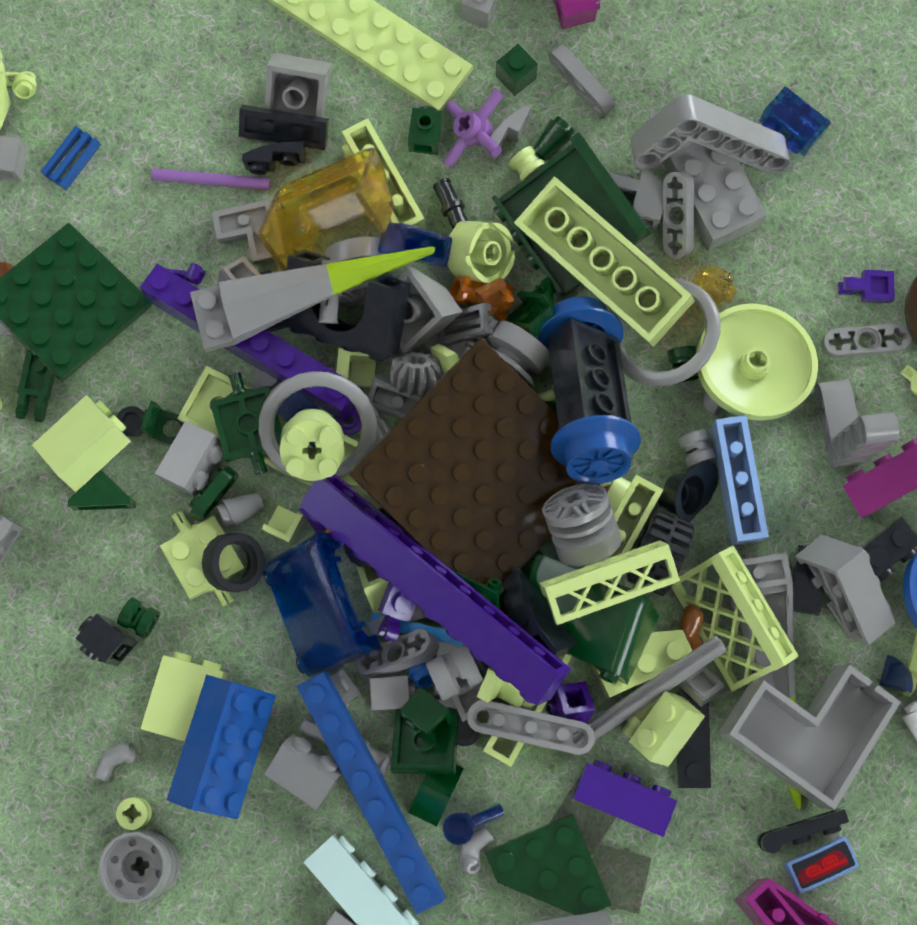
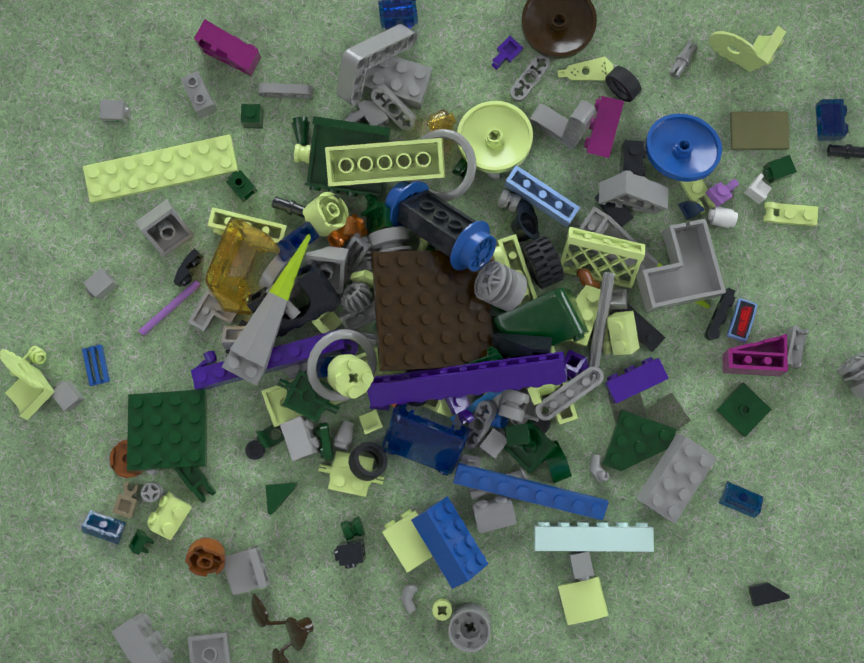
camera: 45 degrees left, 5 degrees up
(82, 442) = (245, 482): yellowish green brick -> none
(167, 79) = (100, 284): none -> light grey brick
(283, 126) = (176, 250): black plate -> none
(460, 827) = (582, 465): clear blue plate -> none
(473, 128) = (262, 162): medium lavender bar -> none
(510, 128) = (278, 145): light grey slope -> none
(605, 570) = (532, 294): yellowish green fence -> none

